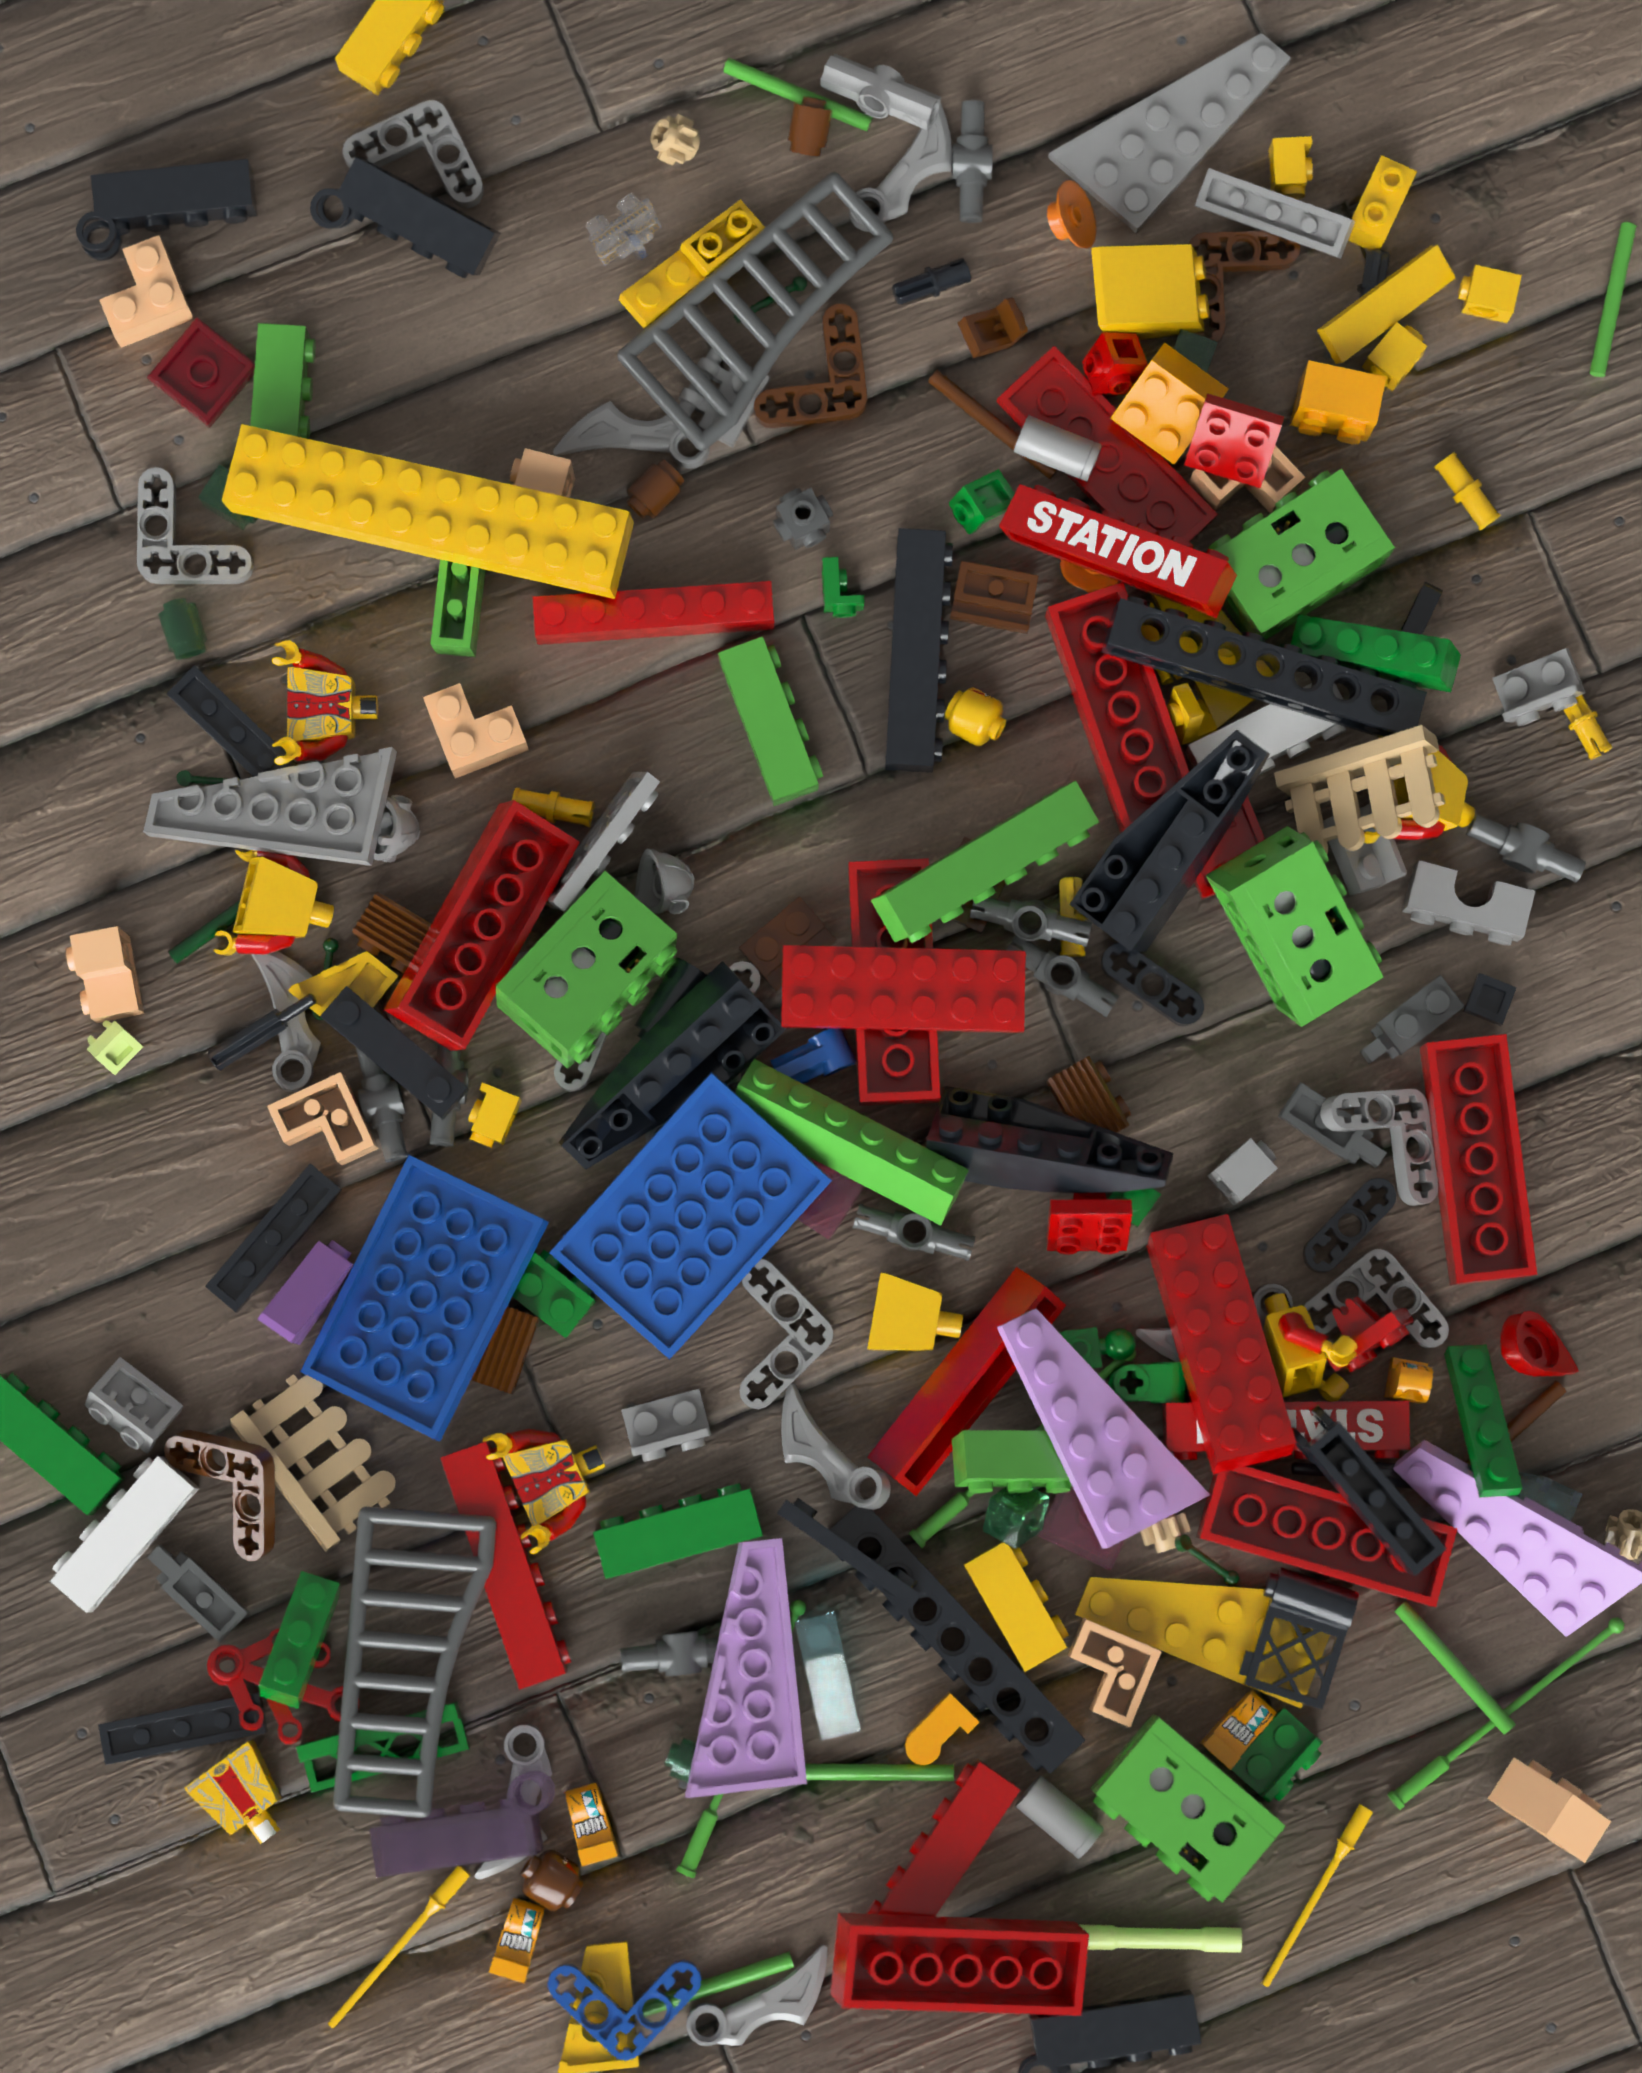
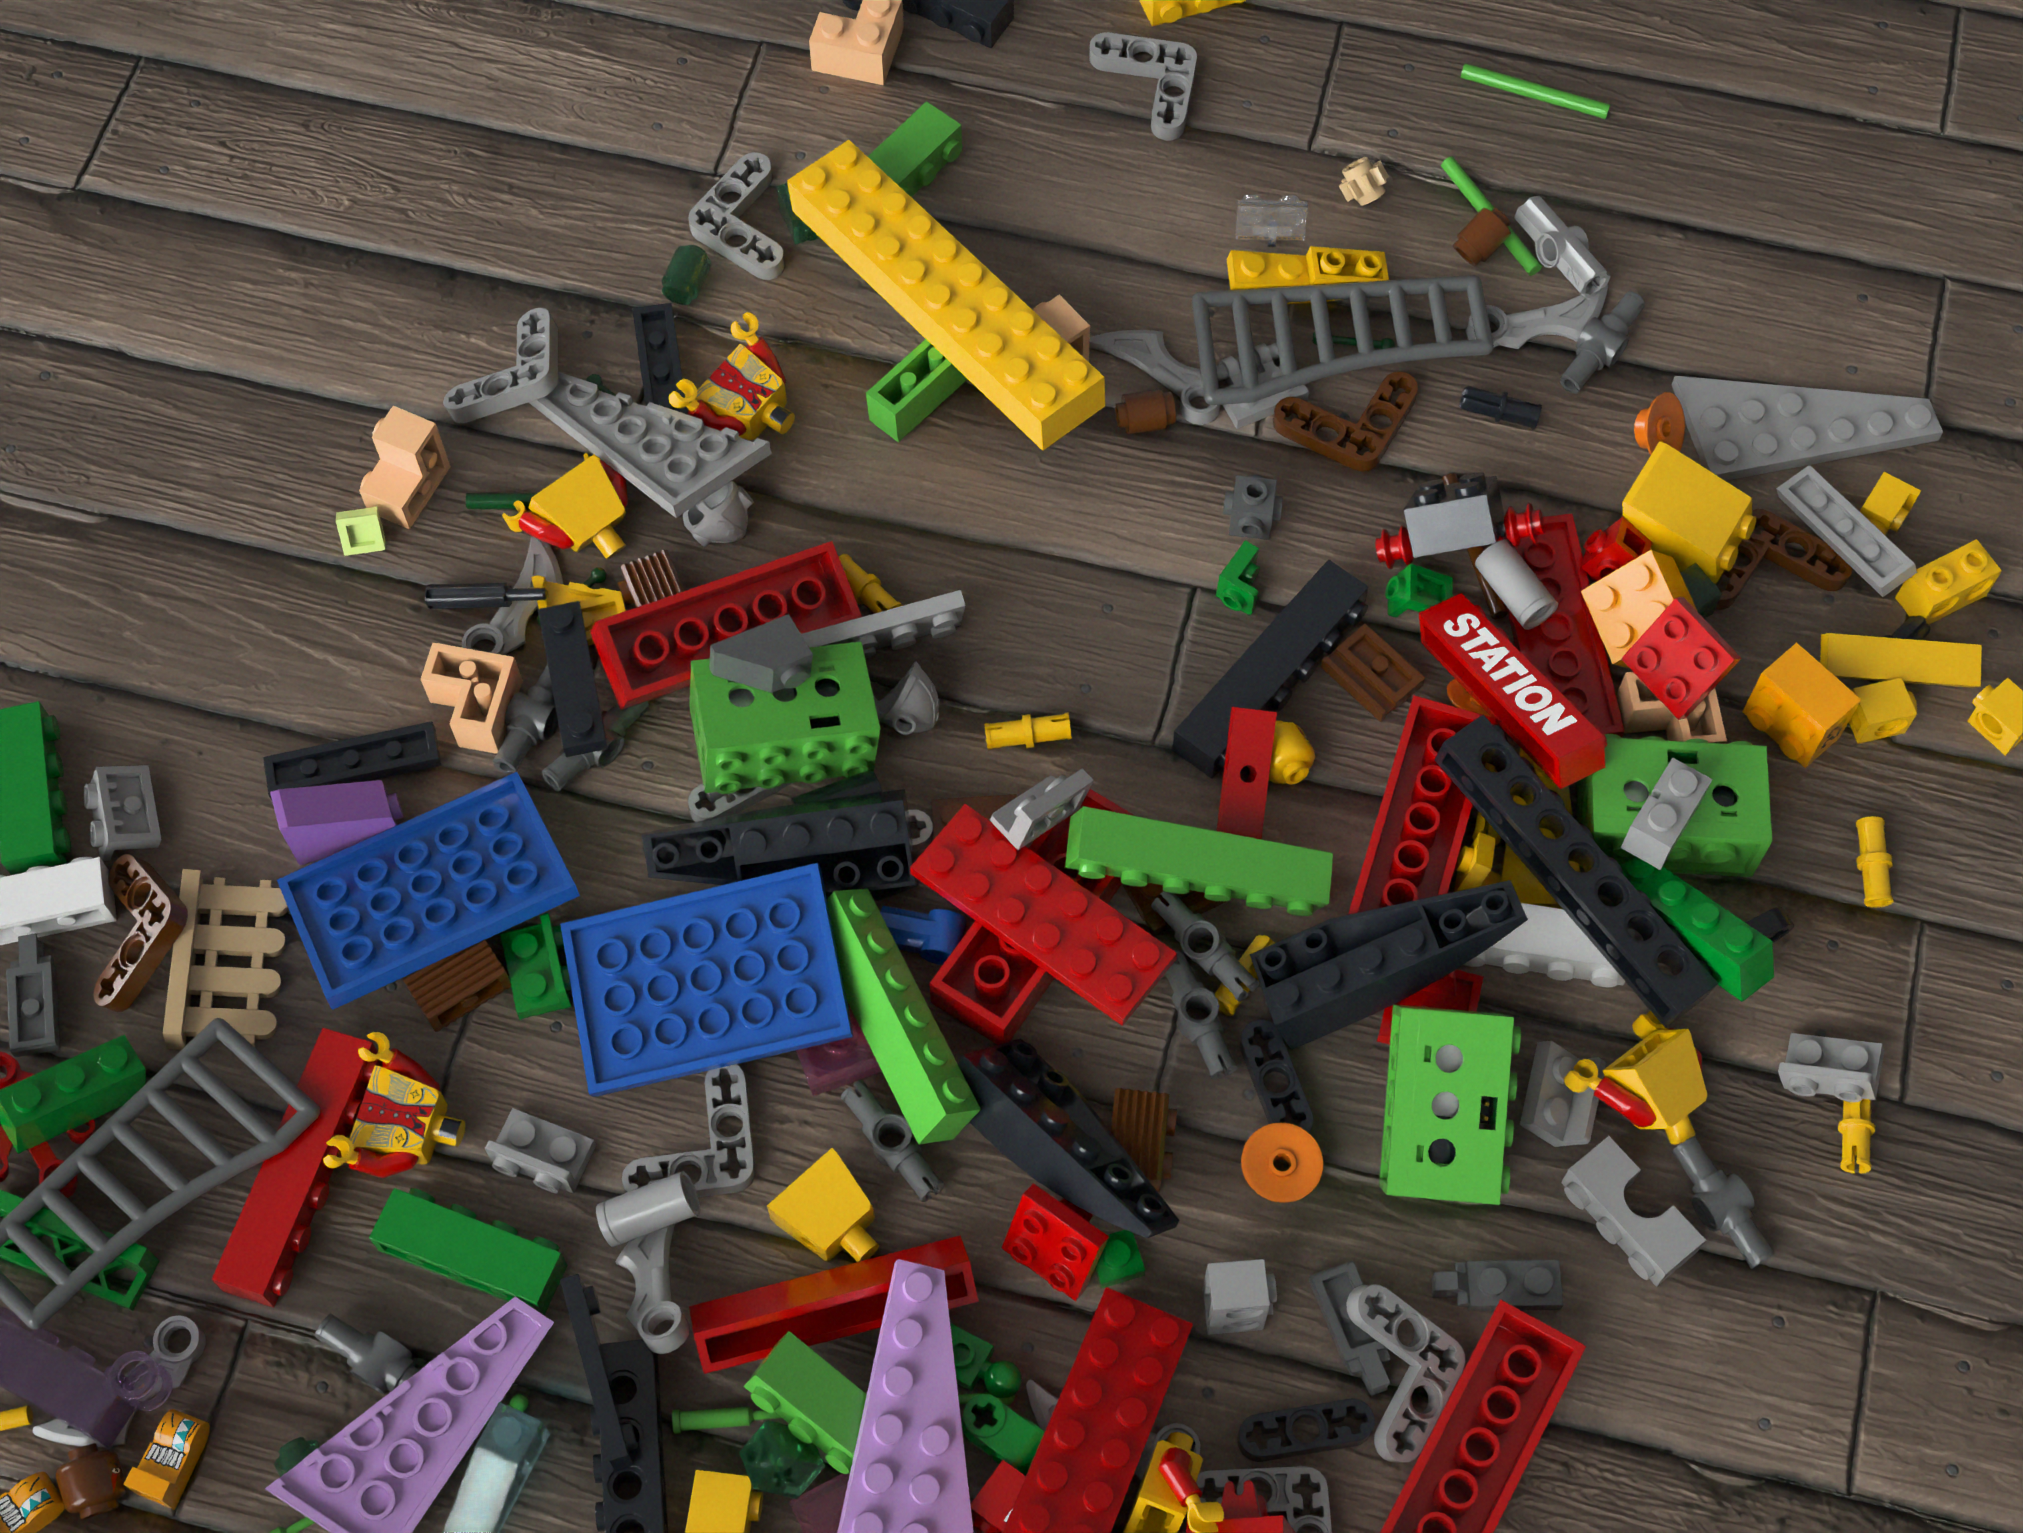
camera: 40 degrees right, 20 degrees down
(131, 814) = (525, 382): none -> light grey beam
(202, 372) = (856, 114): dark red tile -> none
(409, 213) = (1108, 102): black hinge -> none
(470, 741) = (842, 493): light nougat brick -> none
(493, 1116) = (613, 790): yellow brick -> none
(555, 944) = (764, 656): none -> dark grey slope
(654, 613) = (1071, 497): red brick -> none
(769, 720) = (1100, 641): bright green brick -> none
(769, 837) = (1028, 731): none -> yellow pin
(783, 1411) = (647, 1209): none -> light grey pin
(844, 911) = (1041, 807): none -> light grey bracket
(973, 777) = (1250, 746): none -> red tile
(977, 426) = (1457, 518): none -> brick
(993, 328) = (1528, 472): reddish brown bracket -> none
(1217, 1034) = (1289, 1144): none -> orange piece
(1313, 601) = (1666, 813): none -> light grey piece
(1375, 762) = (1608, 1009): tan fence -> none
(1489, 999) = (1592, 1315): black plate -> none

